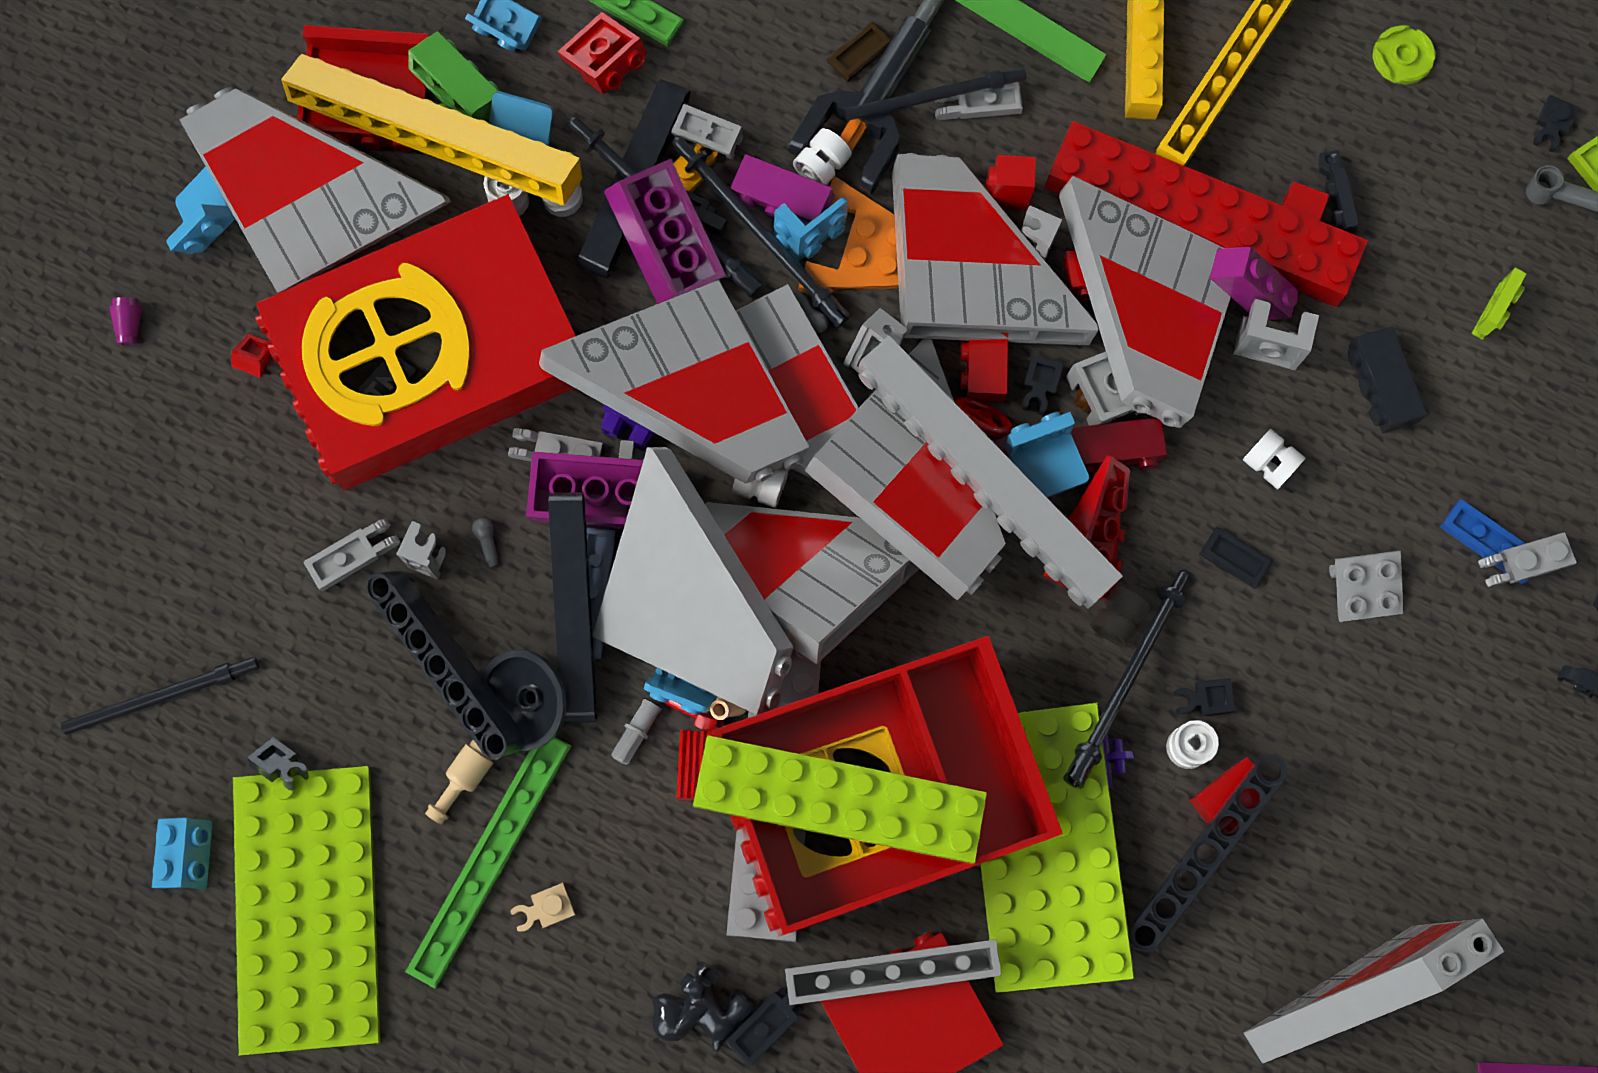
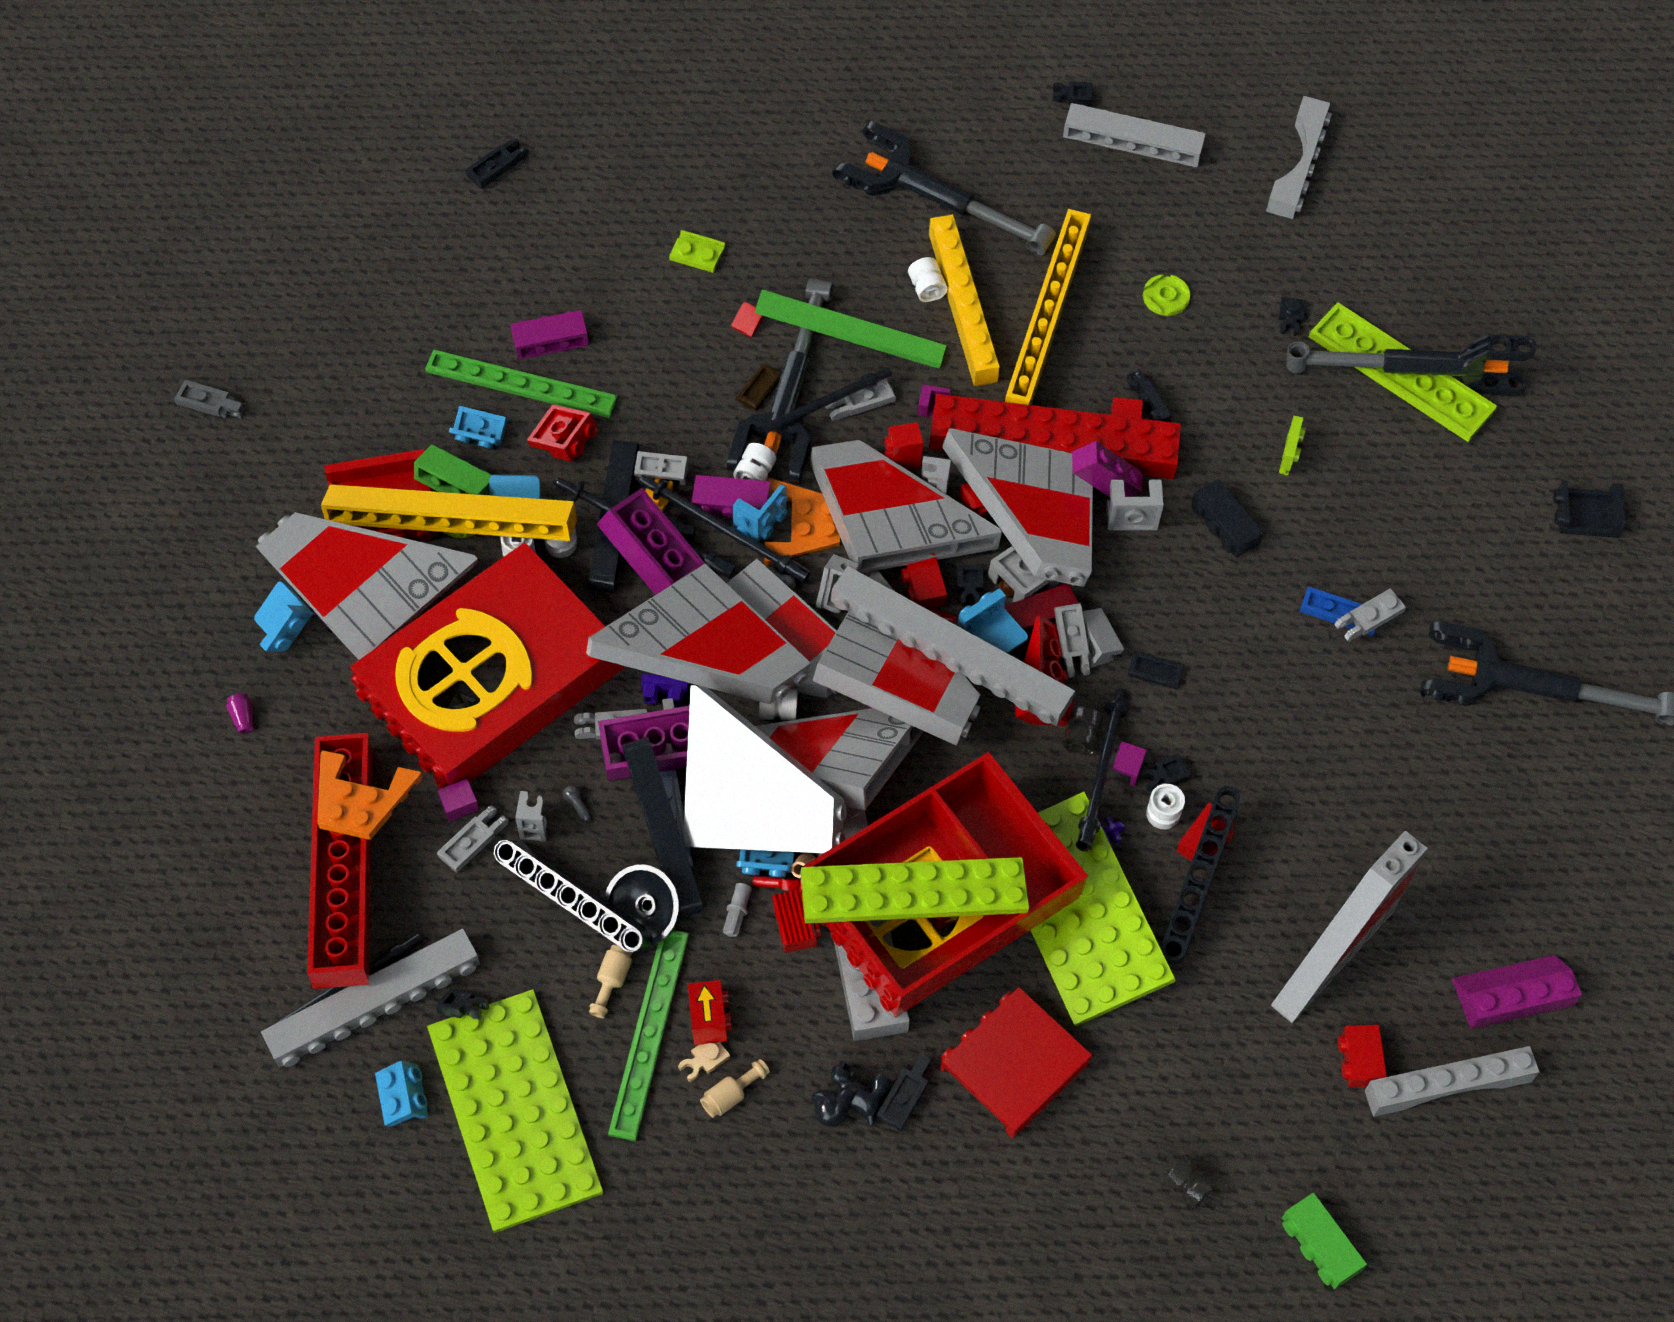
camera: 15 degrees left, 15 degrees down
(175, 726) = (362, 1004): none -> light grey brick
(182, 548) = (340, 880): none -> red brick
(212, 488) = (356, 807): none -> orange wing
(251, 355) = (349, 715): red slope -> none
(344, 502) = (458, 800): none -> magenta panel
(560, 960) = (730, 1091): none -> tan piece
(561, 856) = (707, 1012): none -> red brick
(892, 972) = (990, 1018): light grey brick -> none
(1061, 122) = (927, 399): none -> magenta panel
(1145, 490) = (1072, 637): none -> light grey hinge
(1165, 672) = (1129, 761): none -> magenta panel
(1174, 495) = (1100, 638): none -> light grey hinge
(1261, 454) = (1152, 590): white wheel -> none
(1368, 585) = (1260, 664): light grey hinge -> none

